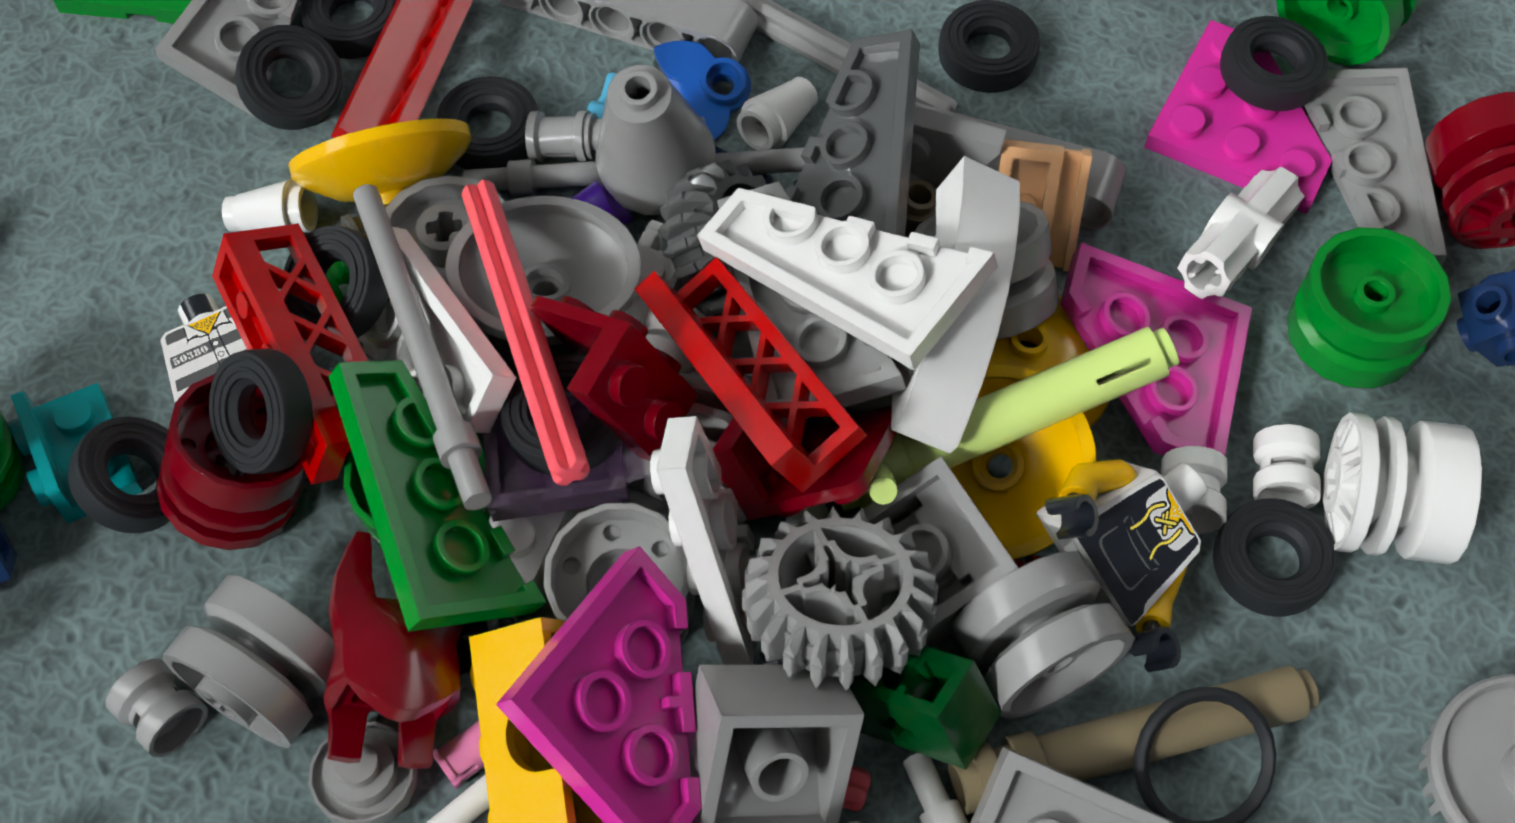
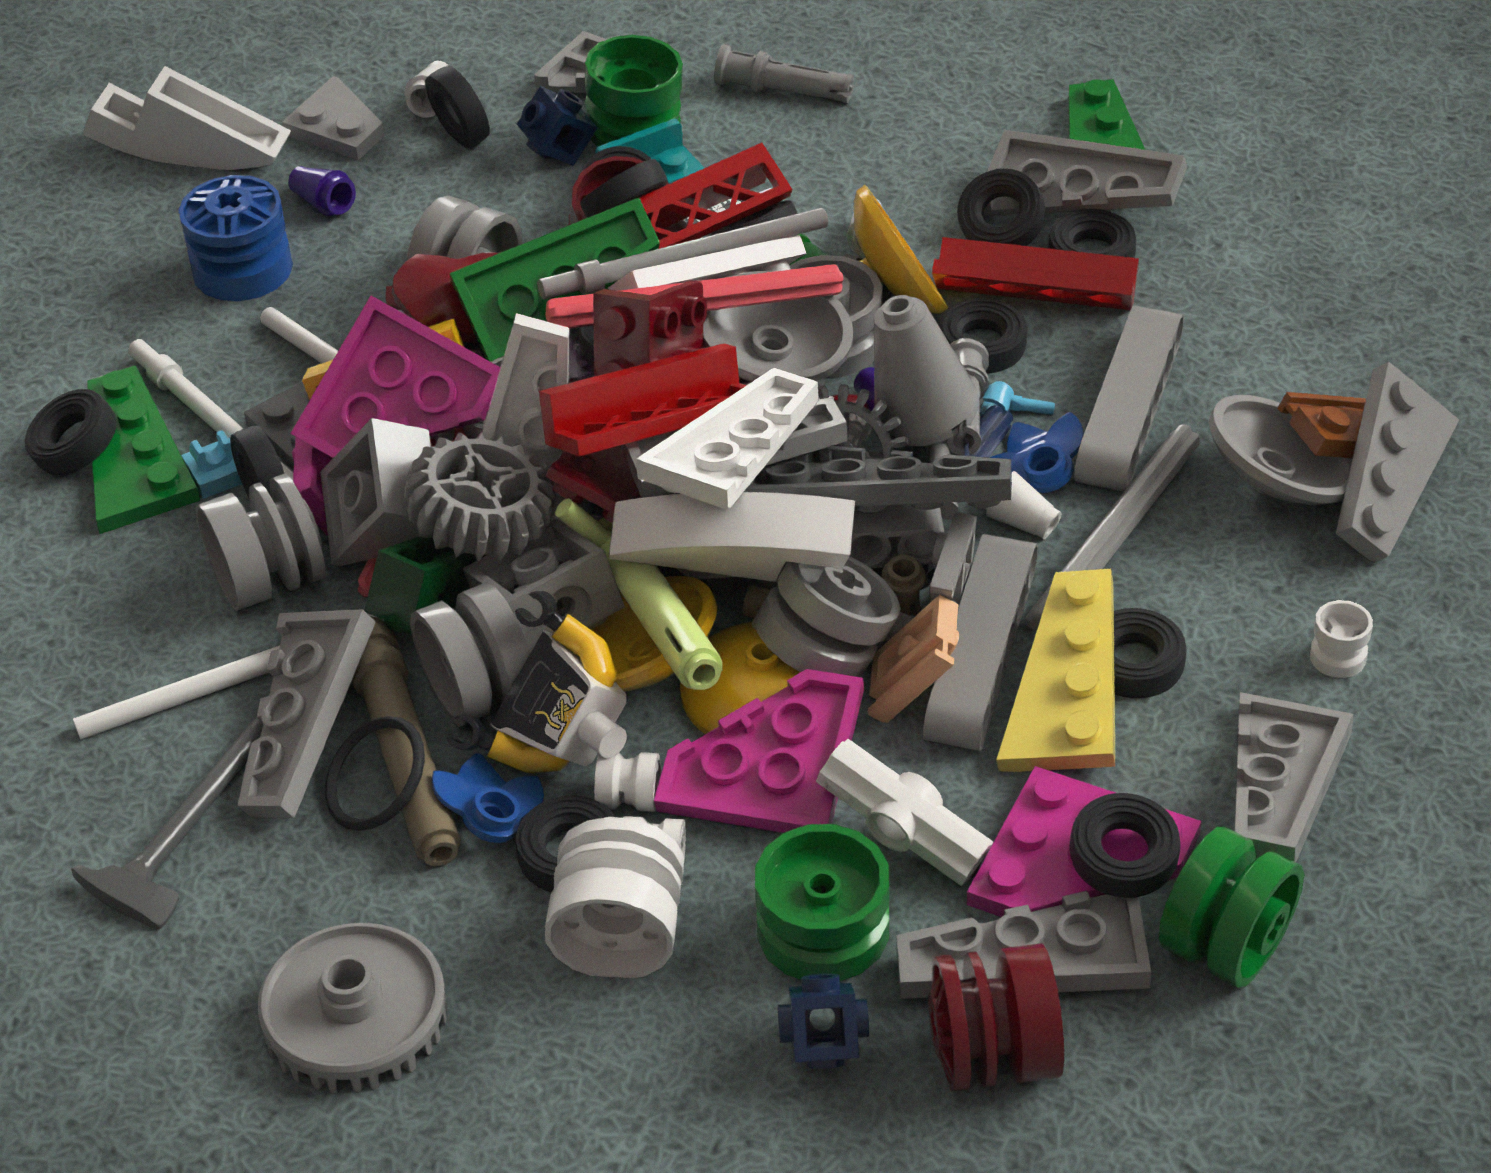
camera: 90 degrees right, 15 degrees down
(1040, 88) = (1067, 688): none -> light yellow wing
(1228, 635) = (485, 801): none -> blue plate

